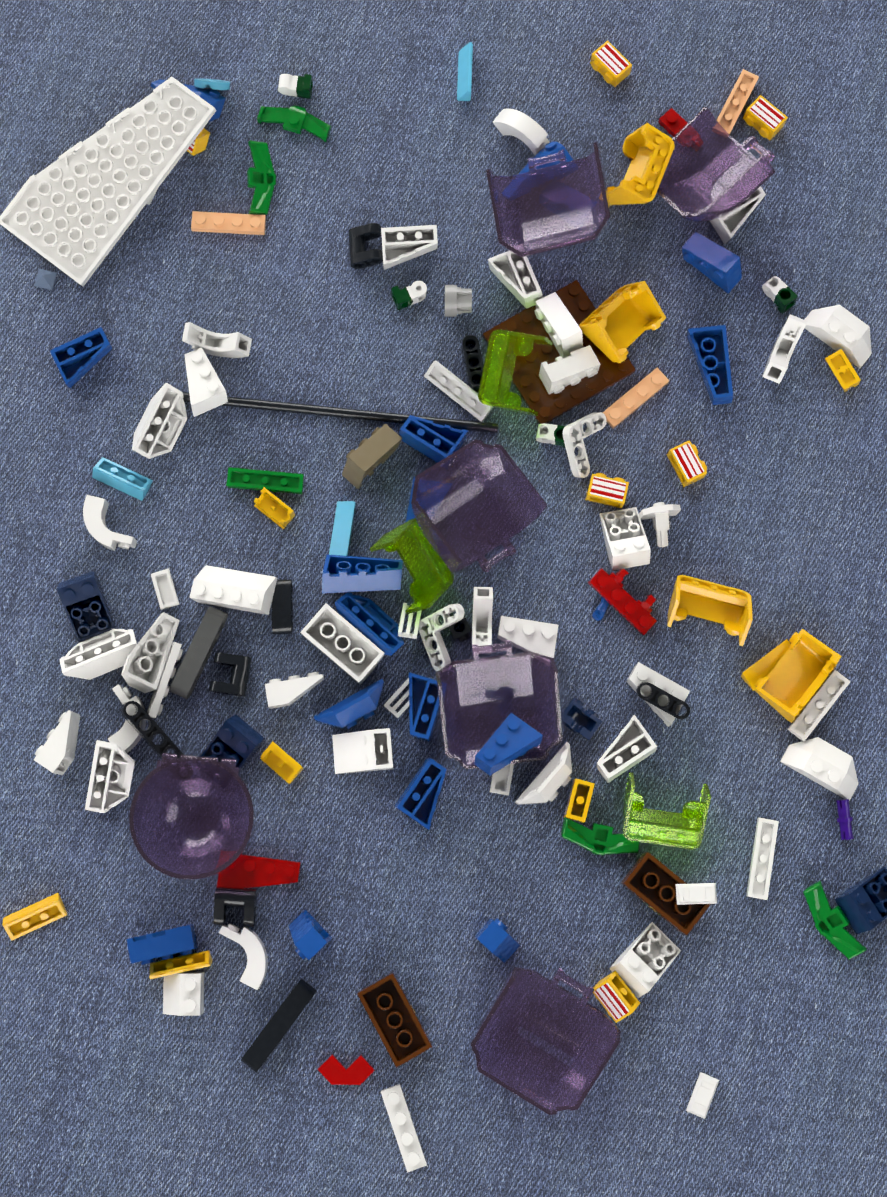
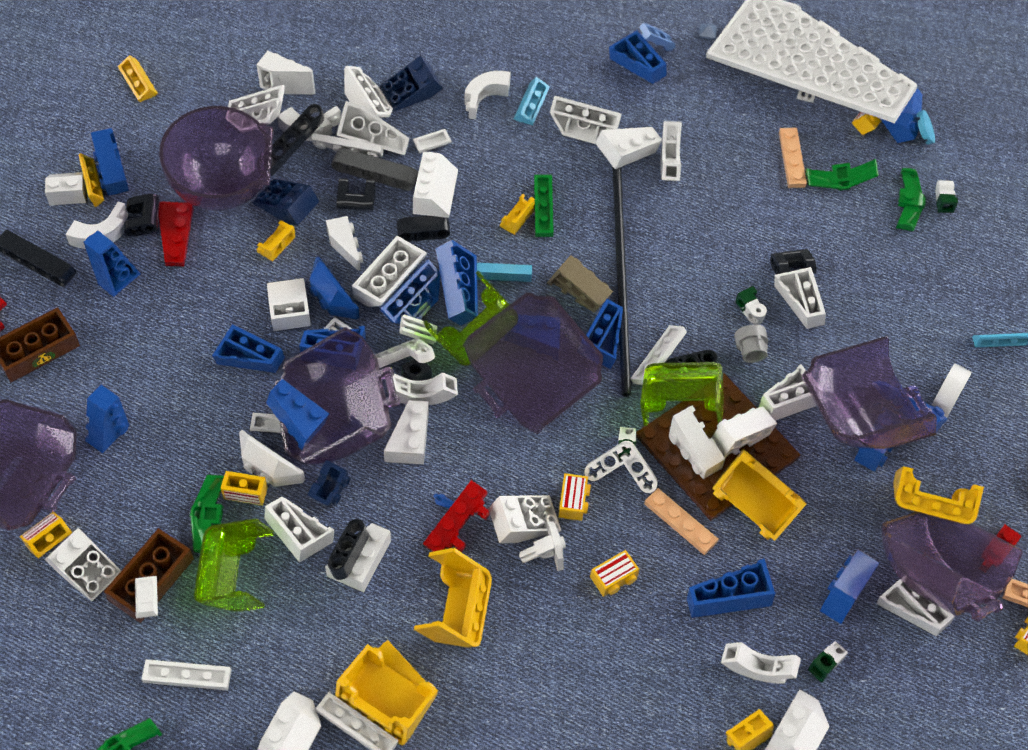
camera: 85 degrees right, 20 degrees down
(57, 332) = (657, 36): none -> medium blue hinge

